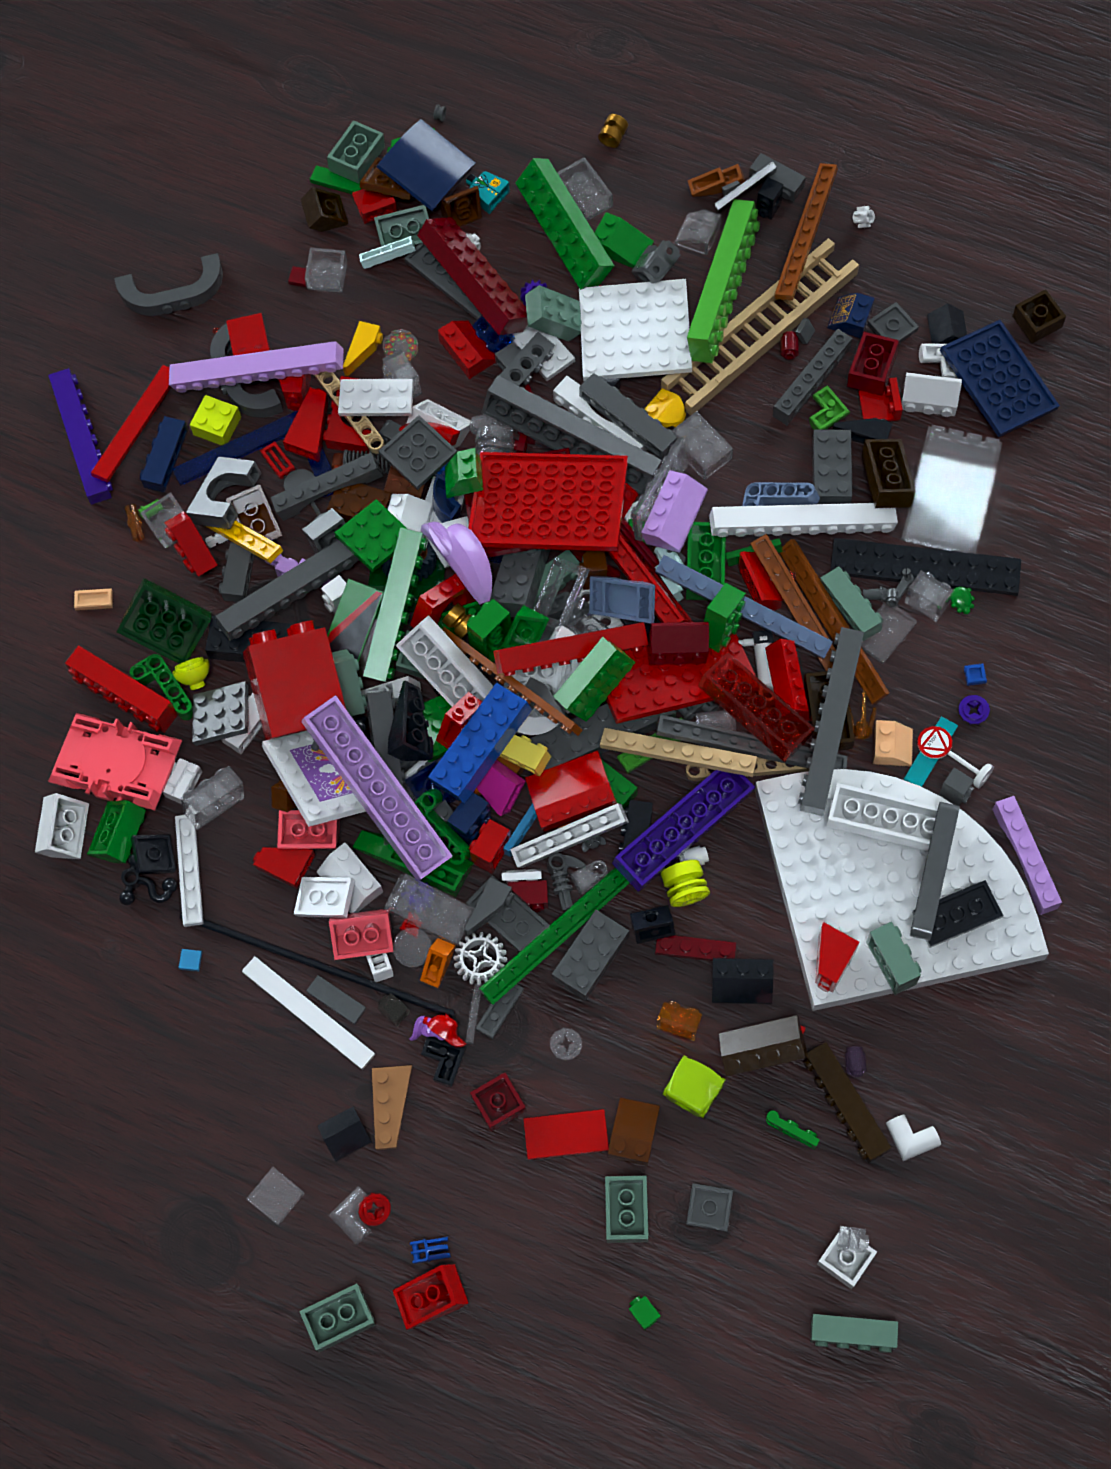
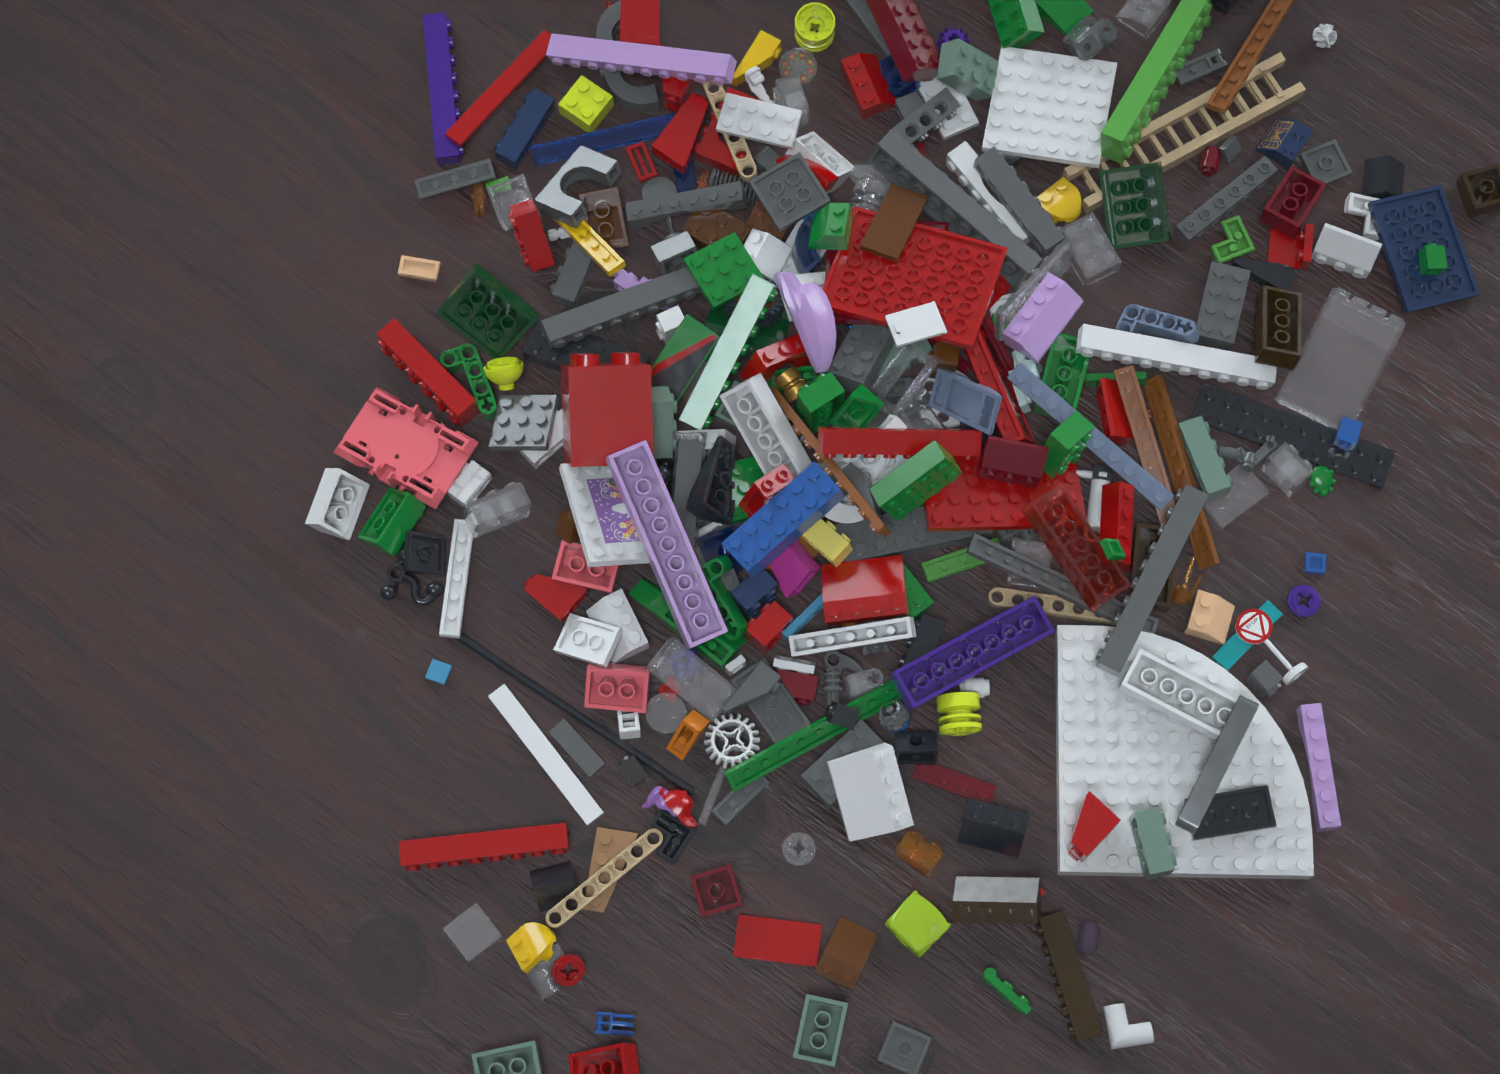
camera: 10 degrees right, 5 degrees up
(109, 511) = (455, 179): none -> dark grey fence
(268, 1112) = (484, 846): none -> red brick
(334, 1193) = (531, 945): none -> yellow slope
(362, 364) = (754, 78): none -> white piece
(386, 1124) = (599, 888): none -> tan beam
(407, 307) = (815, 17): none -> neon yellow wheel
(467, 888) = (735, 665): none -> white tile
(519, 457) = (894, 222): none -> reddish brown tile
(560, 539) = (915, 324): none -> white container
(576, 909) = (841, 715): none -> black brick
(620, 974) = (870, 792): none -> white slope
(628, 902) = (894, 718): none -> dark grey piece
(678, 752) = (985, 576): tan plate -> none
(733, 396) = (1135, 205): none -> dark green slope
(761, 267) = (1201, 67): none -> dark grey plate
(789, 700) = (1112, 549): none -> green tile
(974, 552) = (1347, 434): none -> blue brick
(1010, 384) = (1432, 259): none -> green brick

